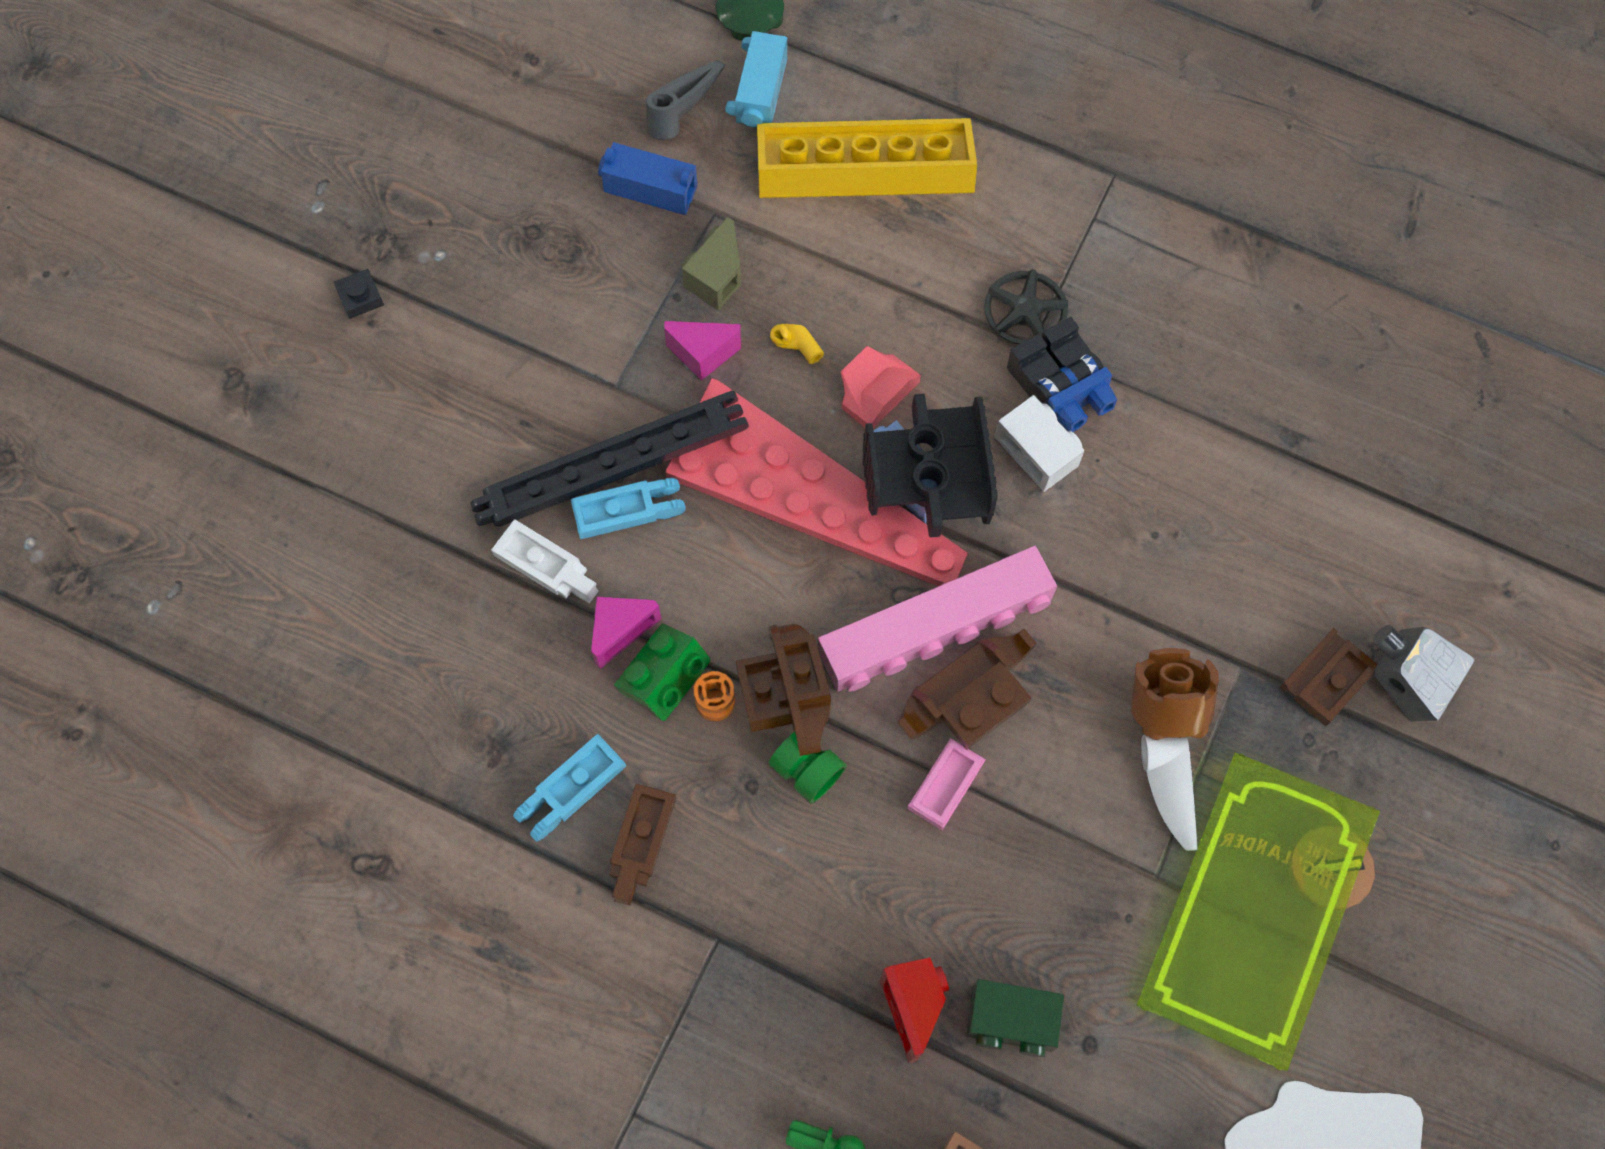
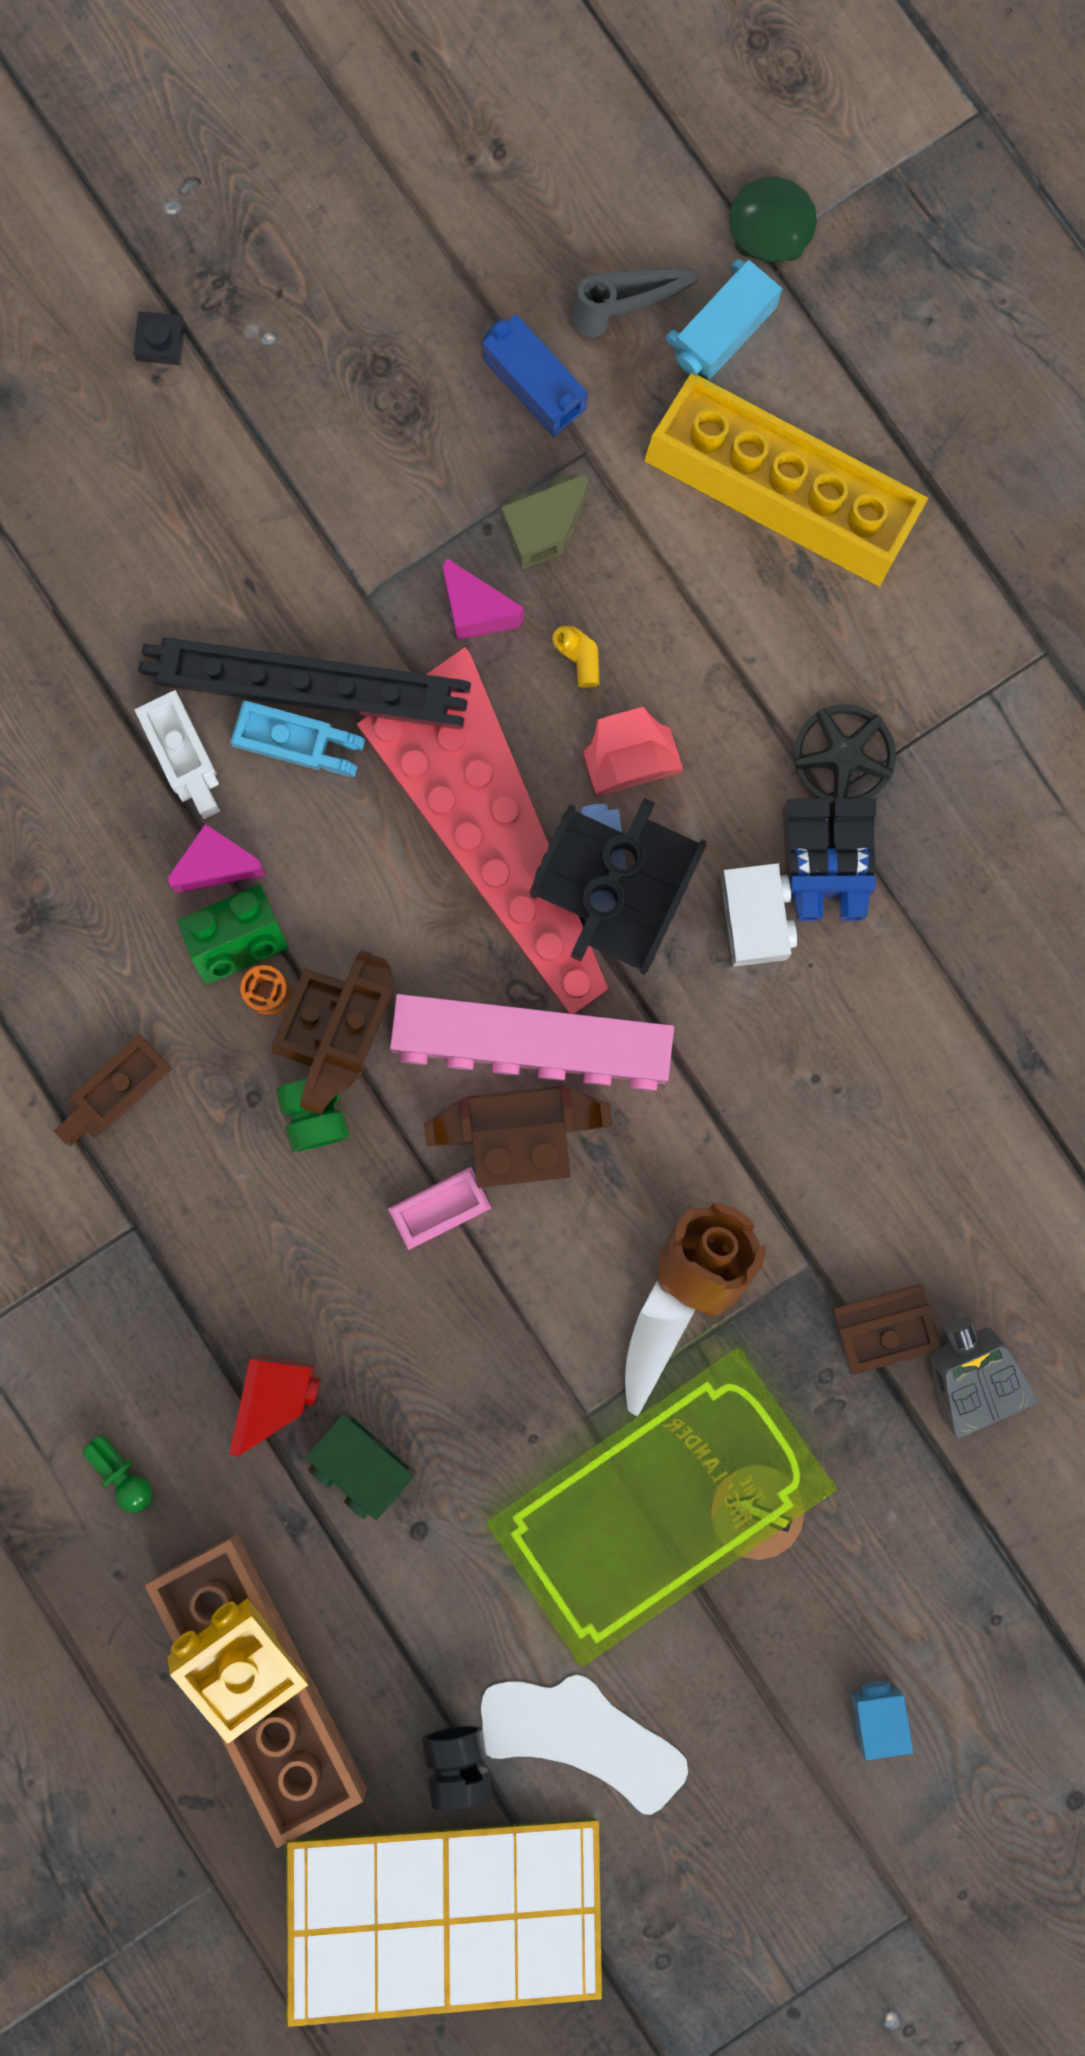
camera: 30 degrees right, 15 degrees up
(571, 785) = (81, 997): medium azure hinge -> none
(1534, 969) = (881, 1721): none -> dark azure brick

